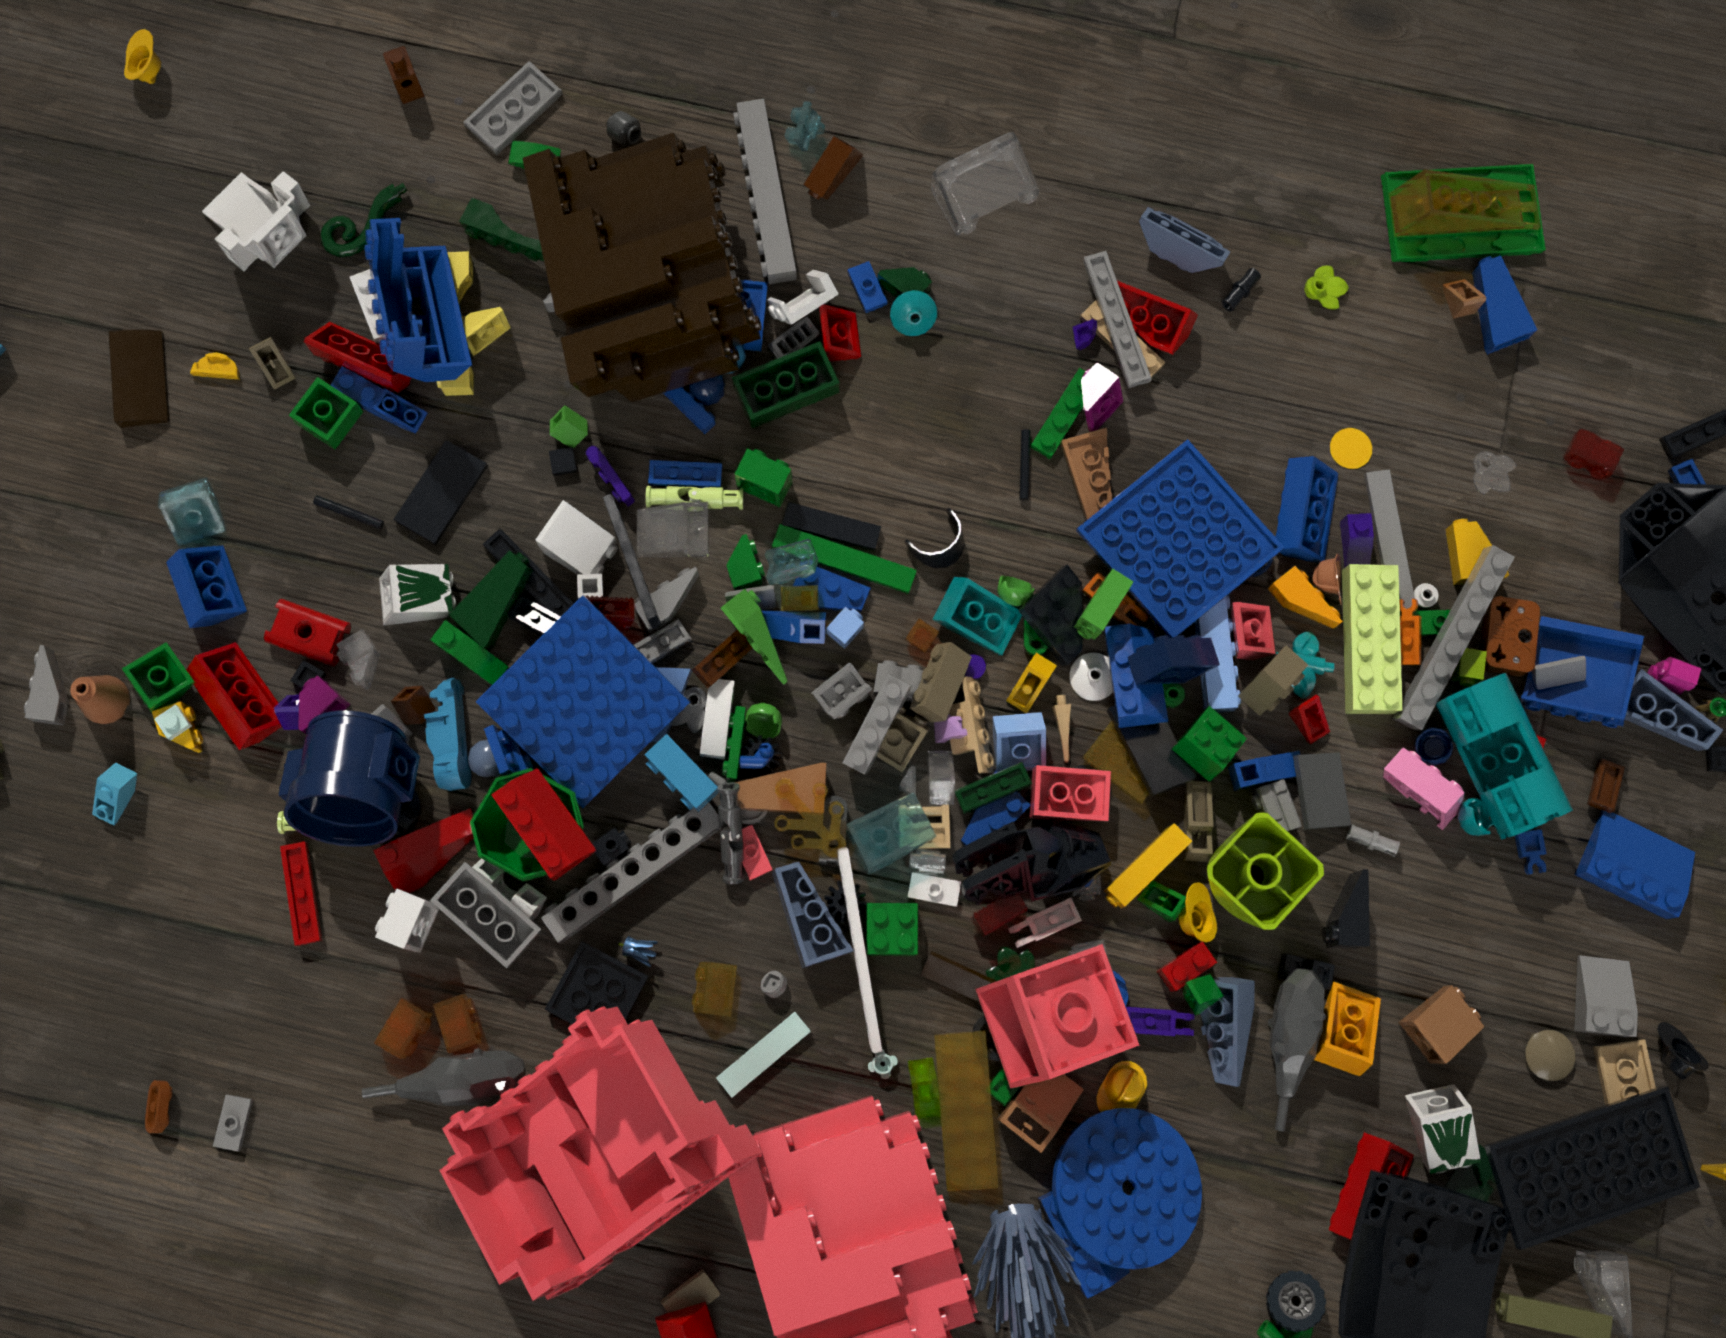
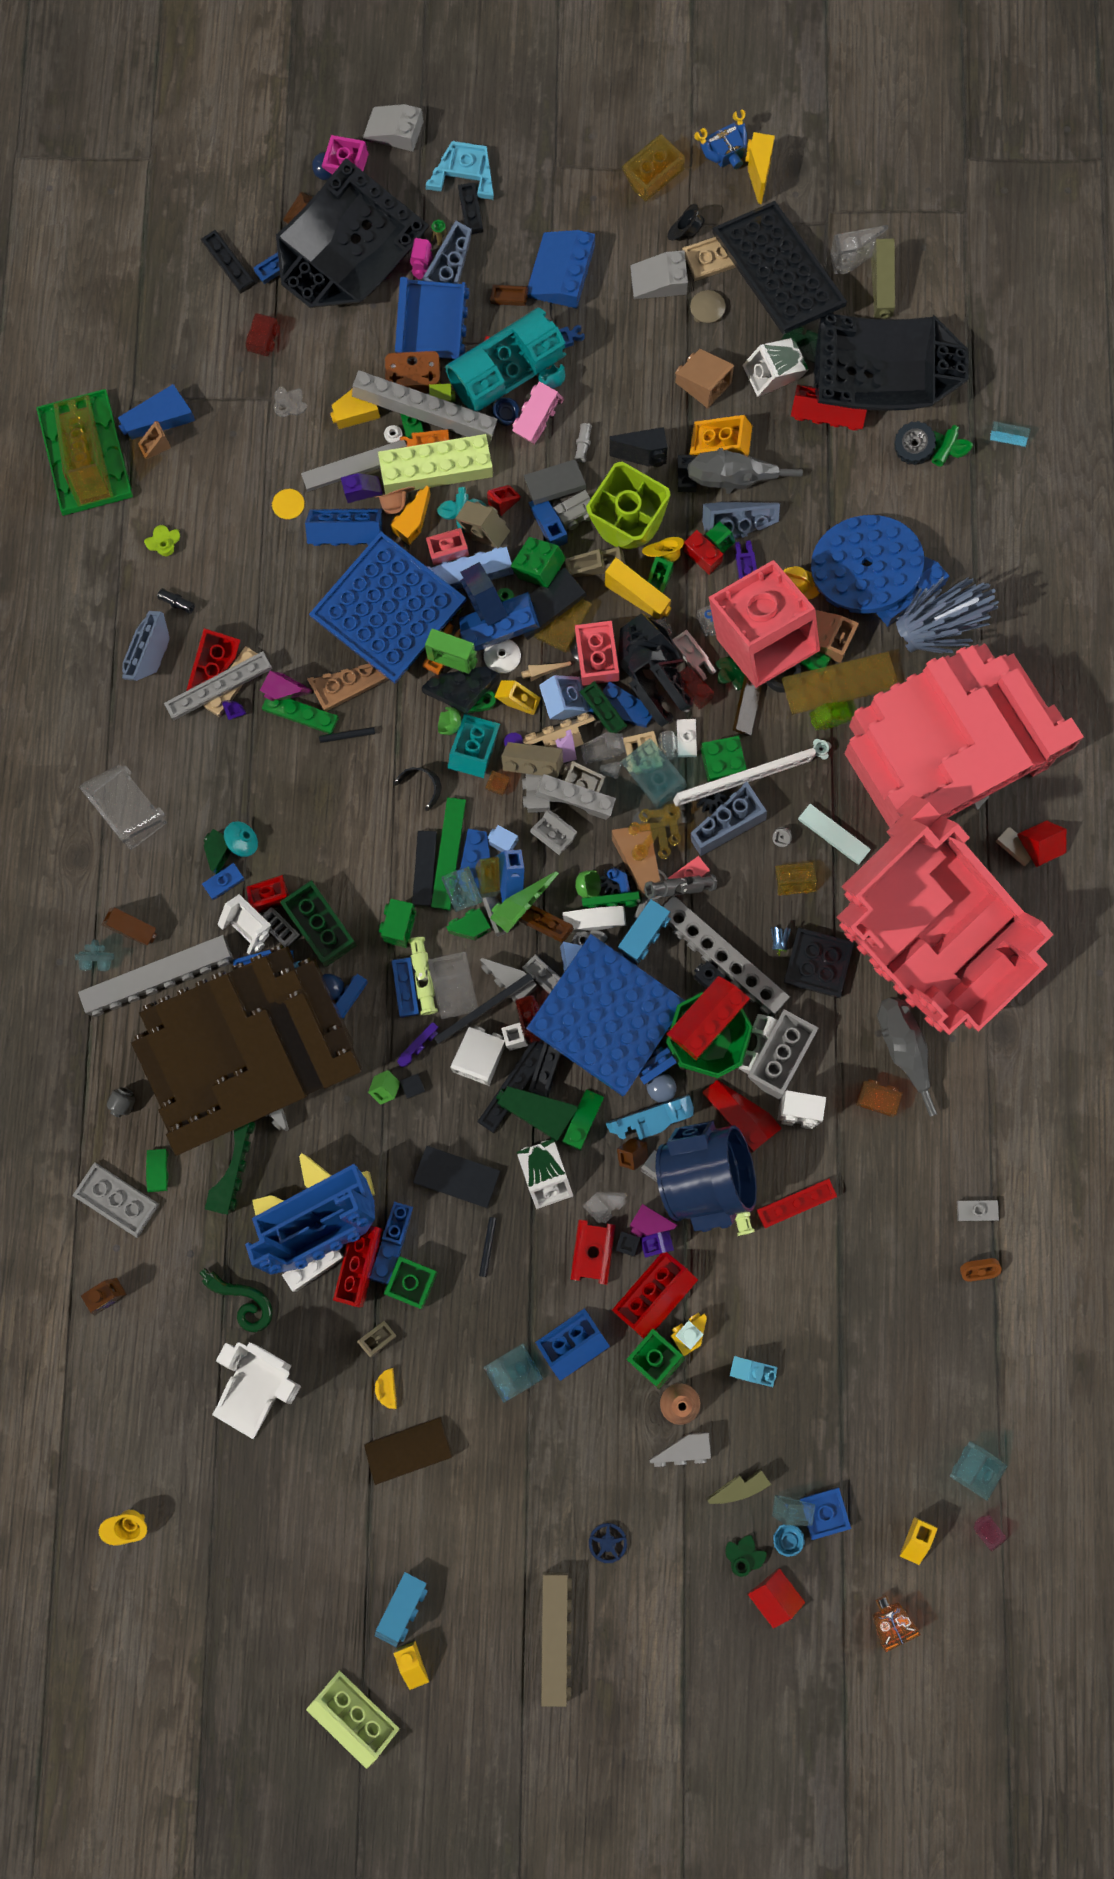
camera: 90 degrees left, 0 degrees up
(458, 1023) = (865, 1059): clear orange brick -> none
(1559, 672) = (435, 333): light grey slope -> none

